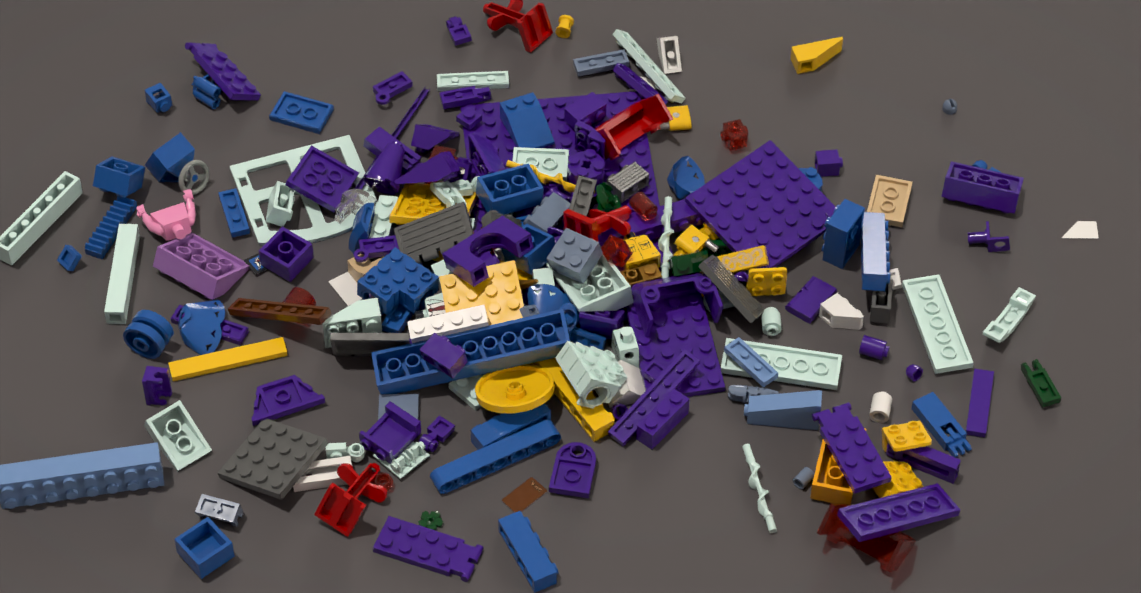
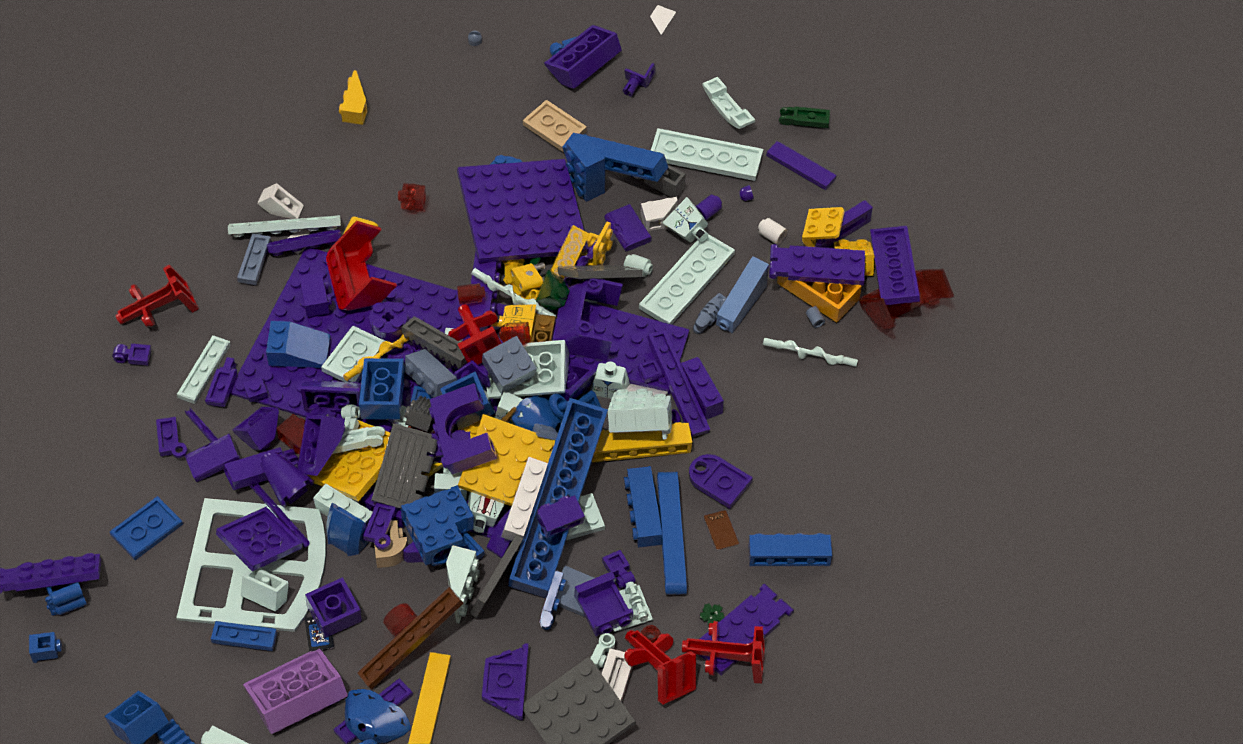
camera: 65 degrees left, 5 degrees up
(171, 221) = (224, 693): bright pink torso -> none
(175, 164) = (147, 660): blue piece -> none
(346, 288) = (397, 576): white sticker -> none
(351, 202) = (307, 524): clear brick -> none
(373, 394) = (552, 602): none -> hinge
(388, 119) = (212, 457): none -> dark purple piece
(396, 560) = (750, 652): none -> red piece
(515, 389) = (617, 481): yellow dish -> none
(565, 24) = (185, 265): yellow bush -> none
(588, 138) = (360, 303): dark purple slope -> none
(605, 199) = (437, 321): dark green tile -> none
(628, 181) = (419, 297): brick -> none
(682, 180) = (445, 258): blue piece -> none
(751, 362) = (680, 296): medium blue plate -> none
(828, 162) = (486, 147): dark purple brick -> none
(842, 335) = (687, 222): none -> light aqua torso
(936, 415) = (802, 199): blue hinge -> none

